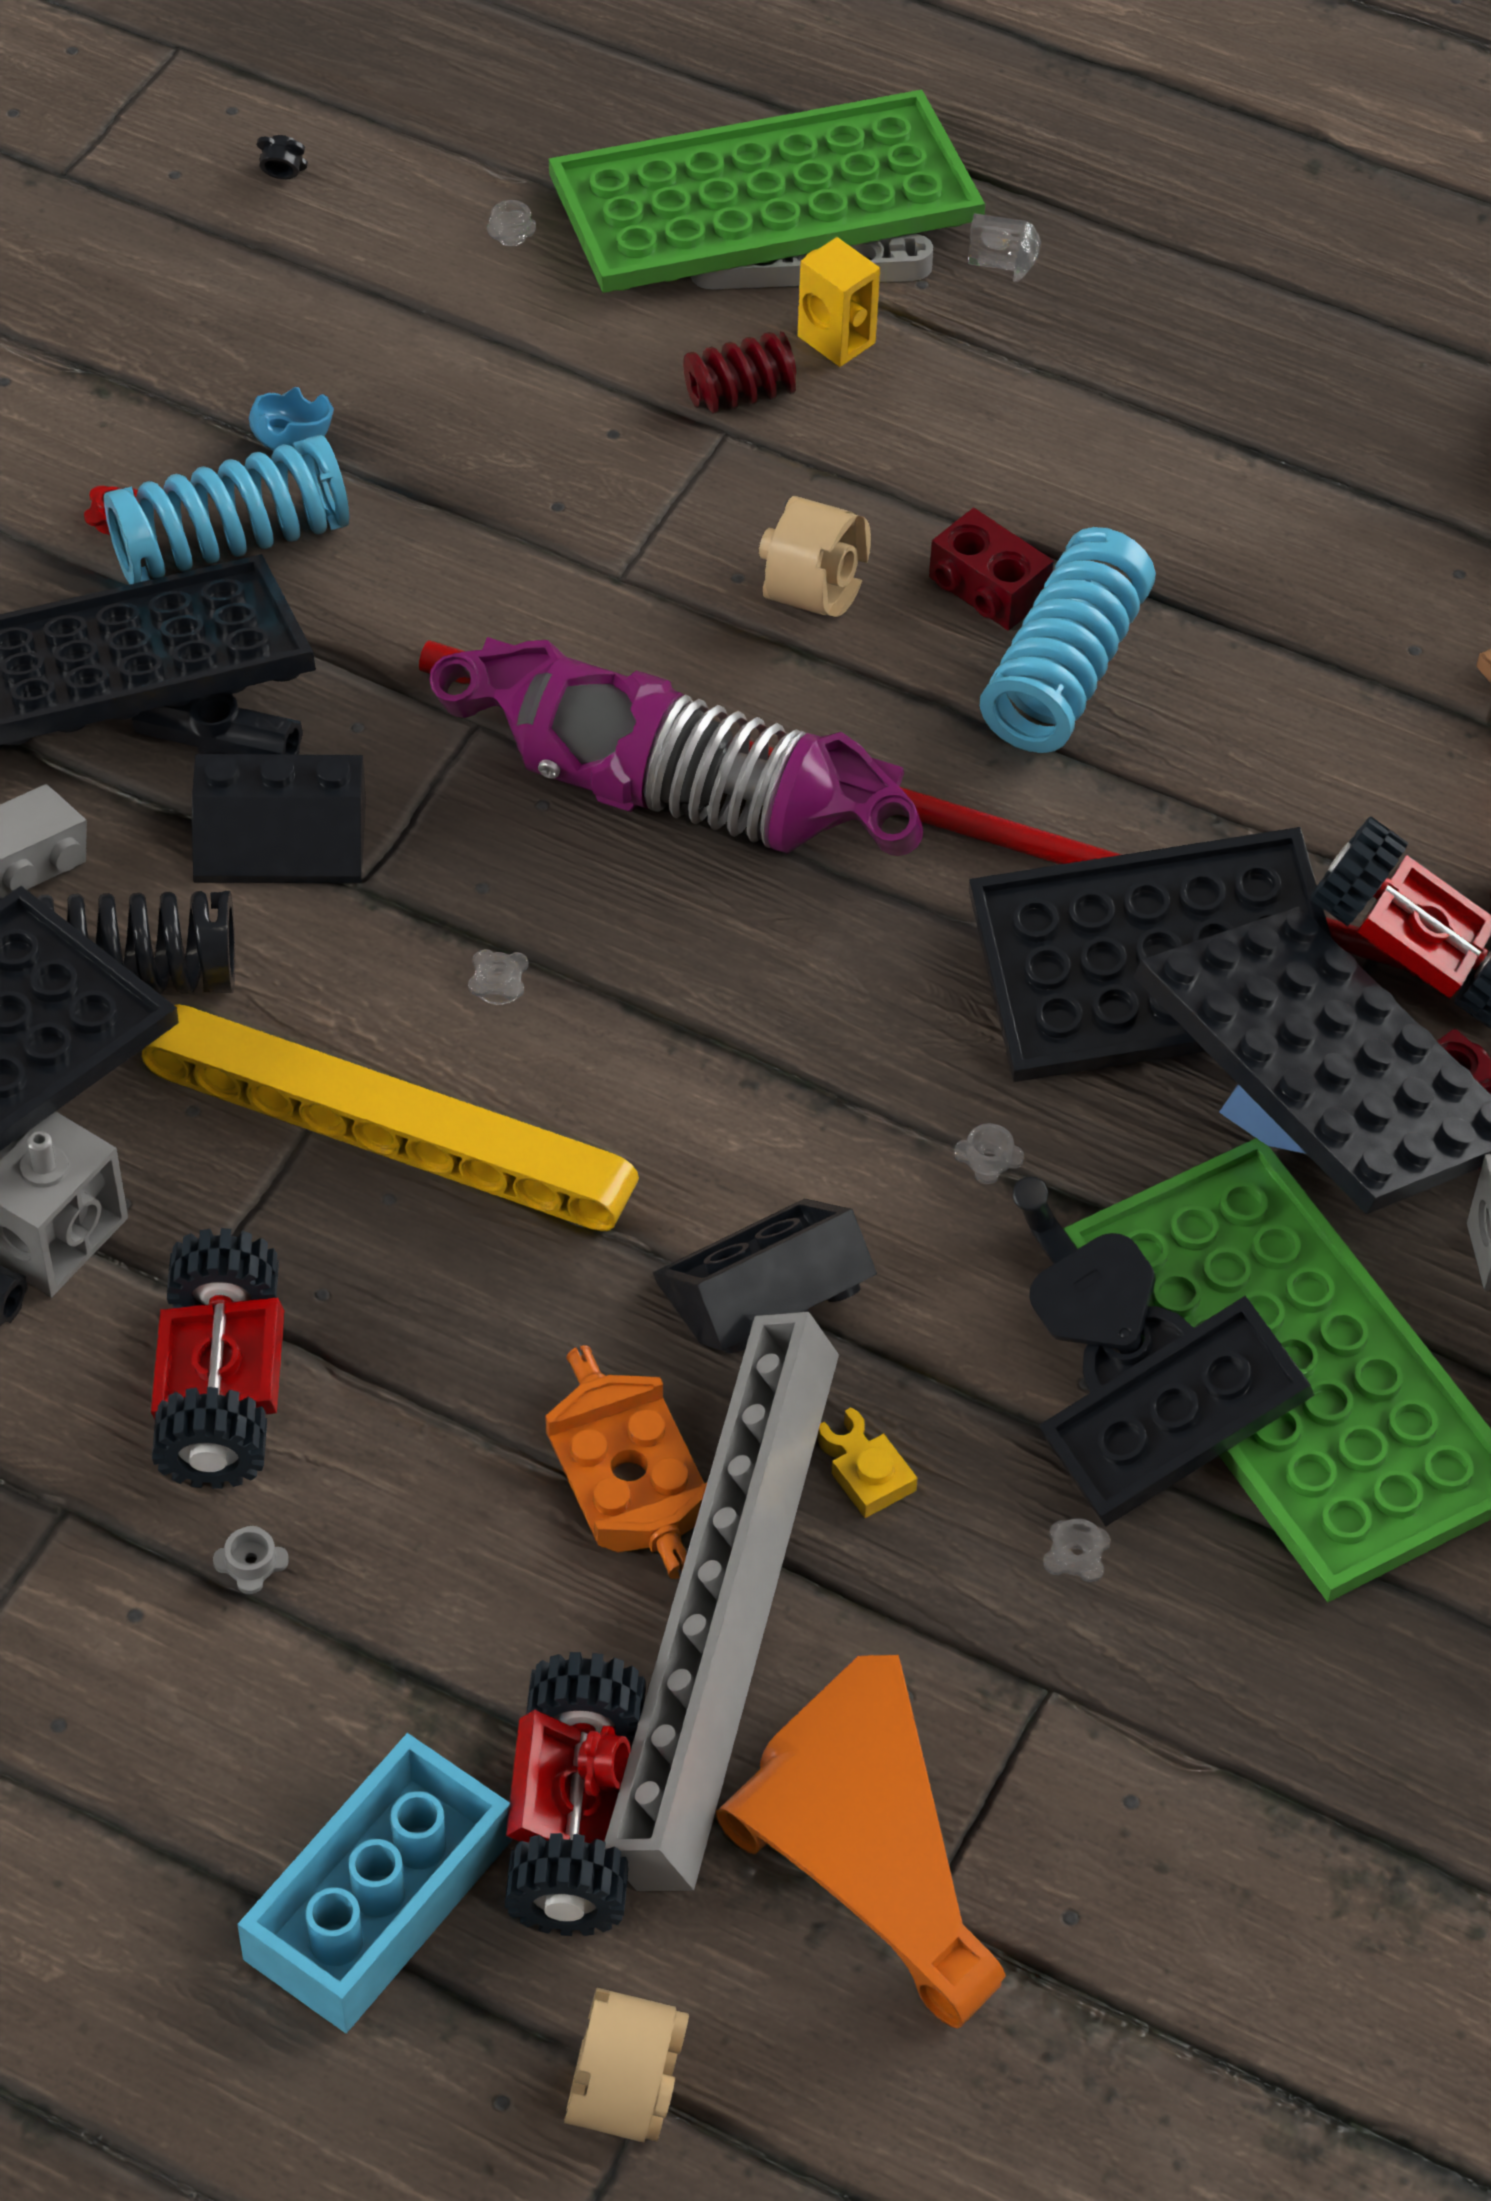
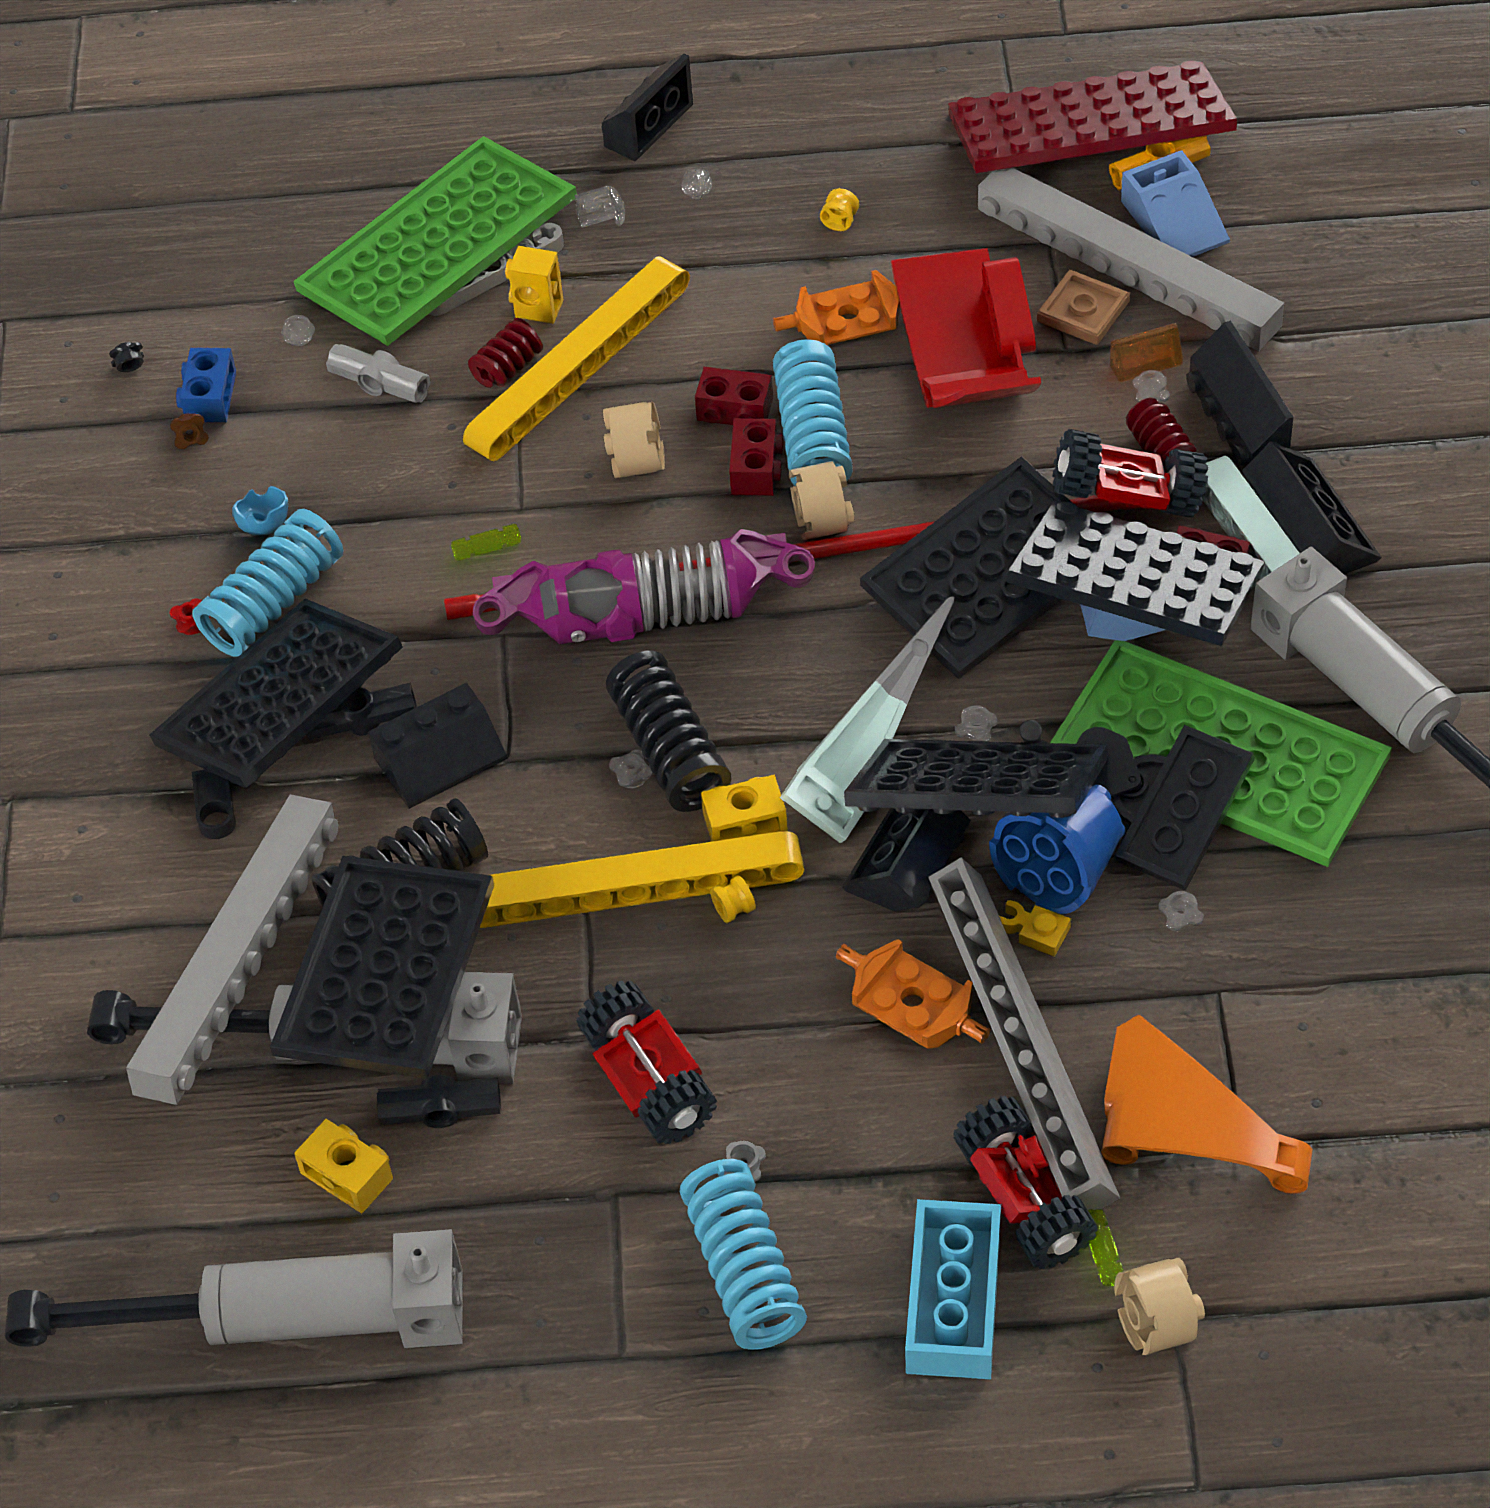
camera: 25 degrees left, 0 degrees up
(156, 1585) = (726, 1266): none -> medium azure piece
(290, 270) = (189, 422): none -> reddish brown plate
(349, 236) = (207, 383): none -> blue brick
(494, 1210) = (732, 899): none -> yellow wheel
(540, 596) = (486, 542): none -> clear neon green axle
(567, 321) = (378, 373): none -> light grey piece
(581, 950) = (668, 724): none -> black piece
(597, 1103) = (762, 807): none -> yellow brick
(627, 1940) = (1104, 1249): none -> clear neon green axle
(758, 1118) = (835, 762): none -> light aqua plate
(828, 421) = (575, 359): none -> yellow beam
(905, 1215) = (977, 777): none -> black plate
(957, 656) = (754, 457): none -> dark red brick
(961, 1366) = (1058, 858): none -> blue cone
(993, 752) = (820, 500): none -> tan brick
(1152, 274) = (696, 183): none -> clear plate
(1159, 154) = (649, 109): none -> black slope
(1188, 518) = (821, 318): none -> orange plate
(1313, 395) = (839, 209): none -> yellow wheel
(1362, 622) = (966, 326): none -> red beam

